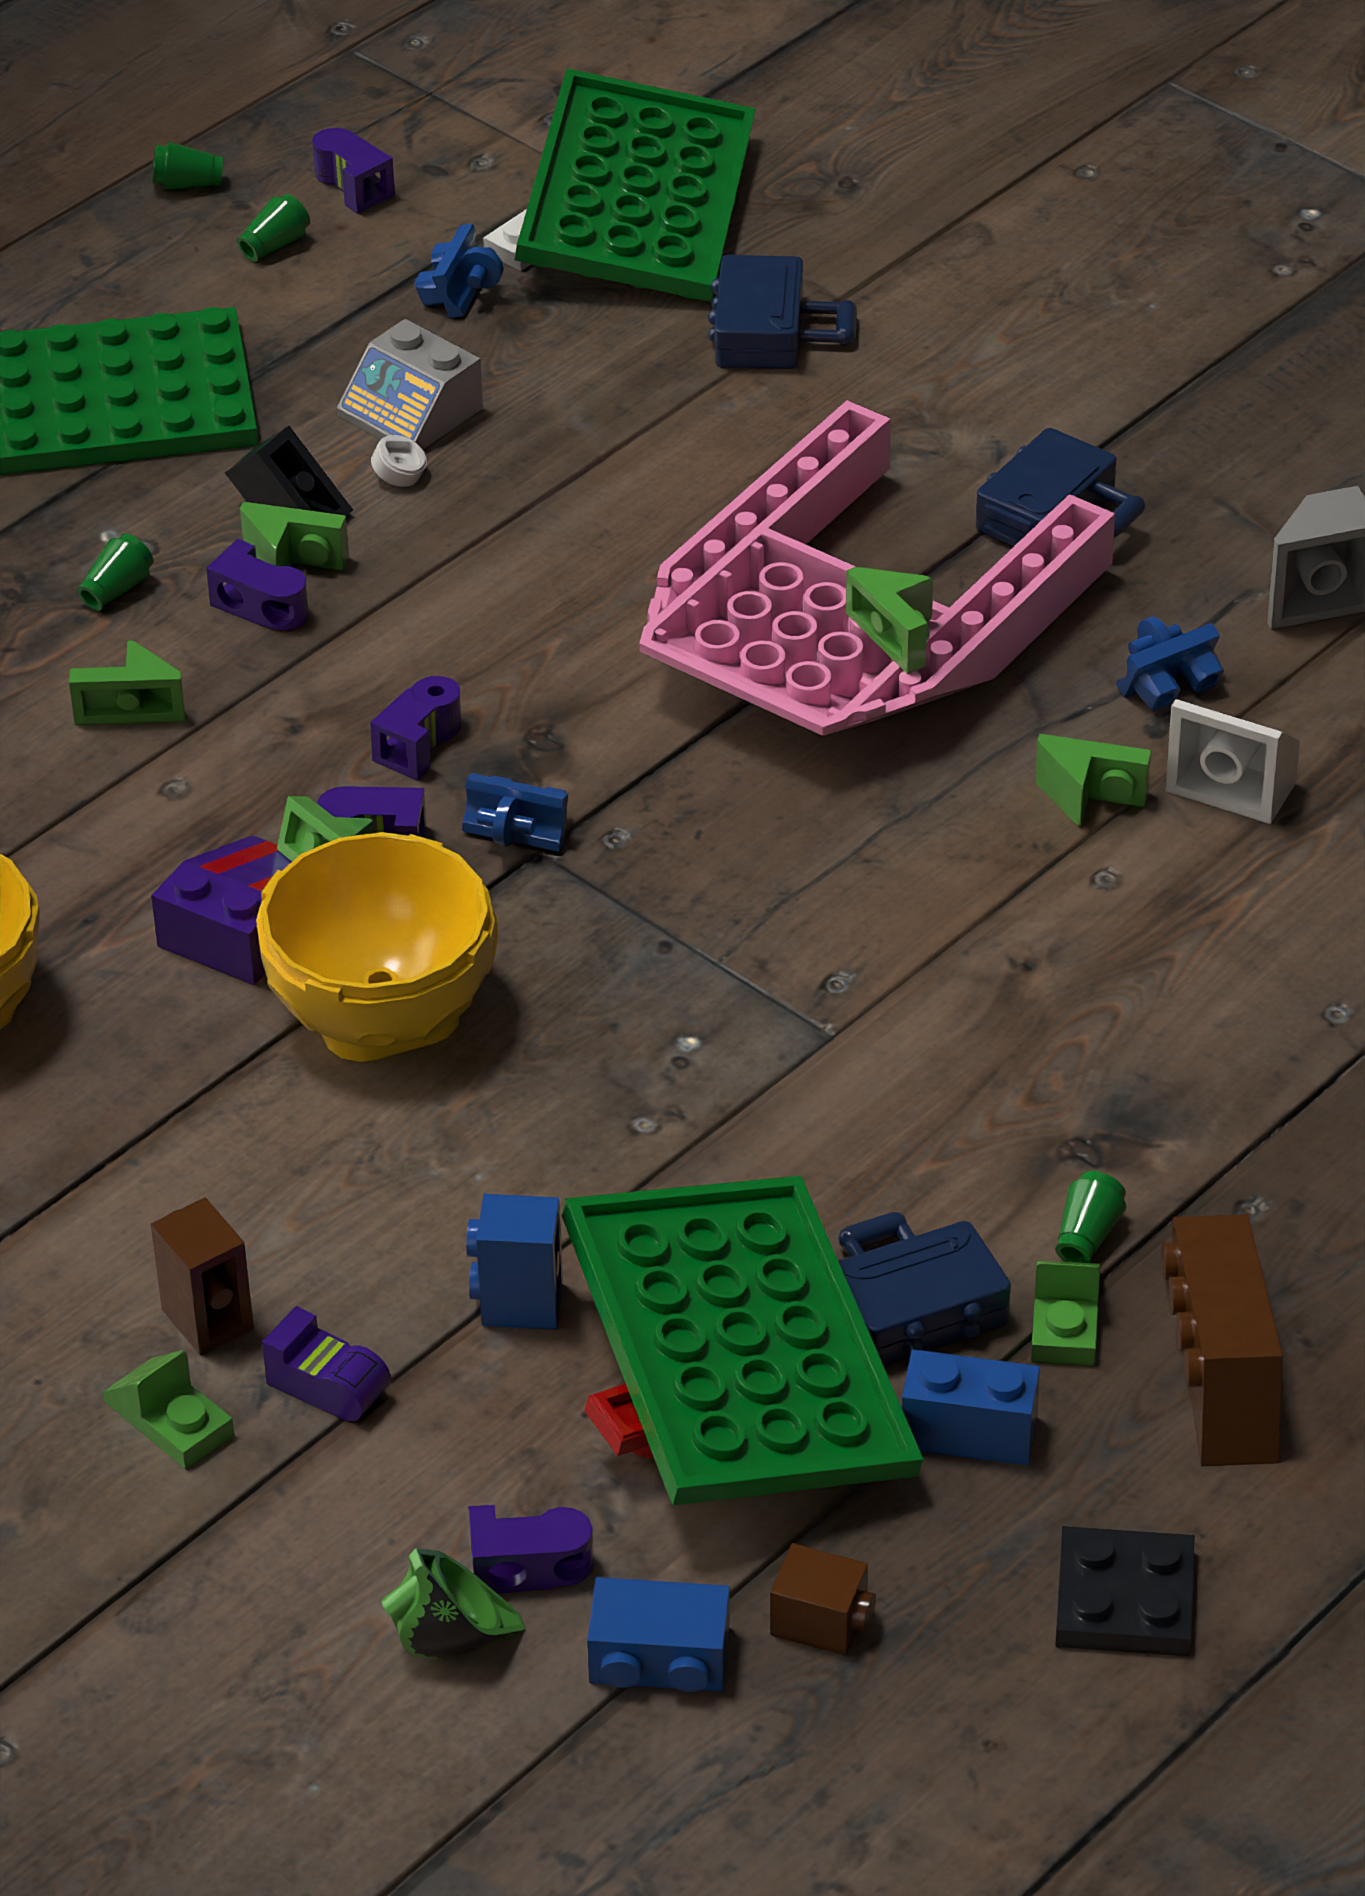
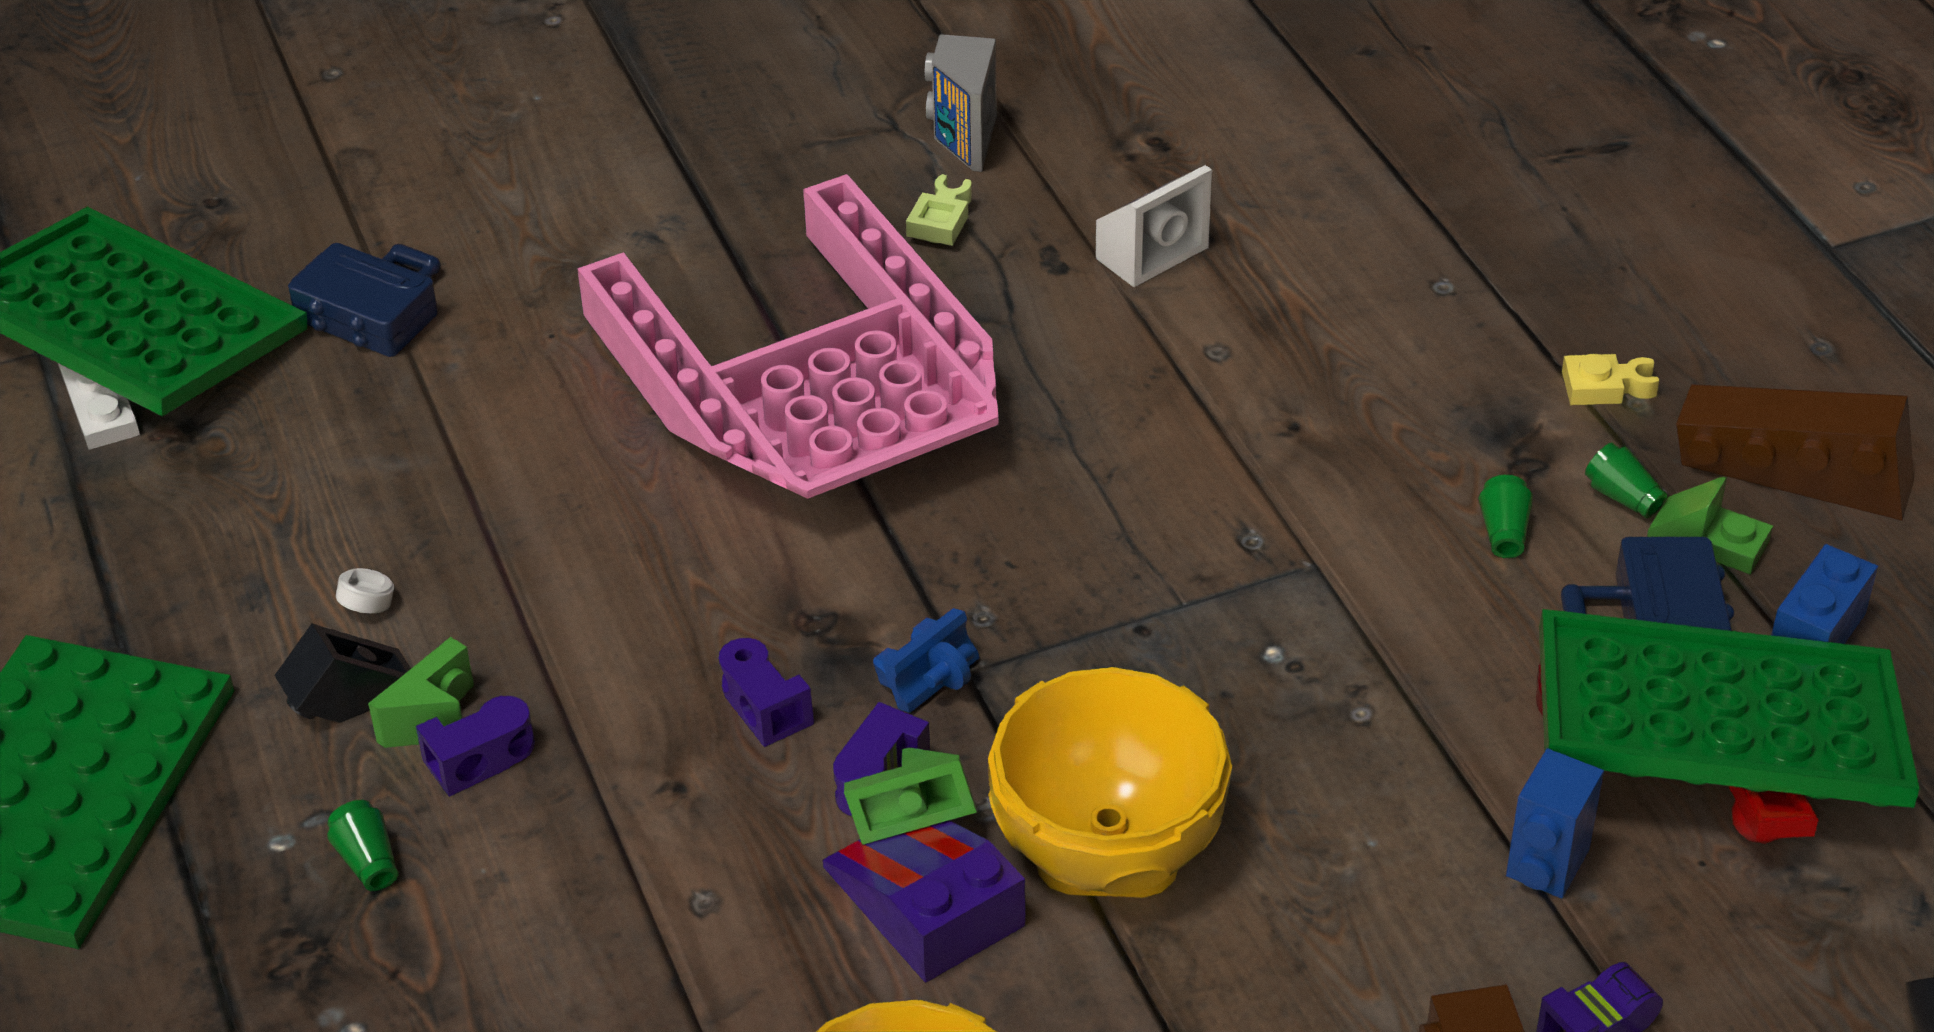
camera: 65 degrees left, 0 degrees up
(136, 693) = (557, 880): bright green slope -> none
(412, 386) = (273, 546): slope -> none
(458, 272) = (134, 458): blue hips -> none
(530, 1551) = (1878, 956): dark purple leg -> none
(892, 612) = (901, 325): bright green slope -> none
(973, 1142) = (1506, 514): none -> green cone
(1042, 478) = (747, 218): dark blue piece -> none
(1084, 770) = (1112, 312): bright green slope -> none
(1167, 653) = (1007, 225): blue hips -> none
(1187, 612) = (941, 215): none -> yellowish green plate
(1259, 1165) = (1602, 380): none -> light yellow plate

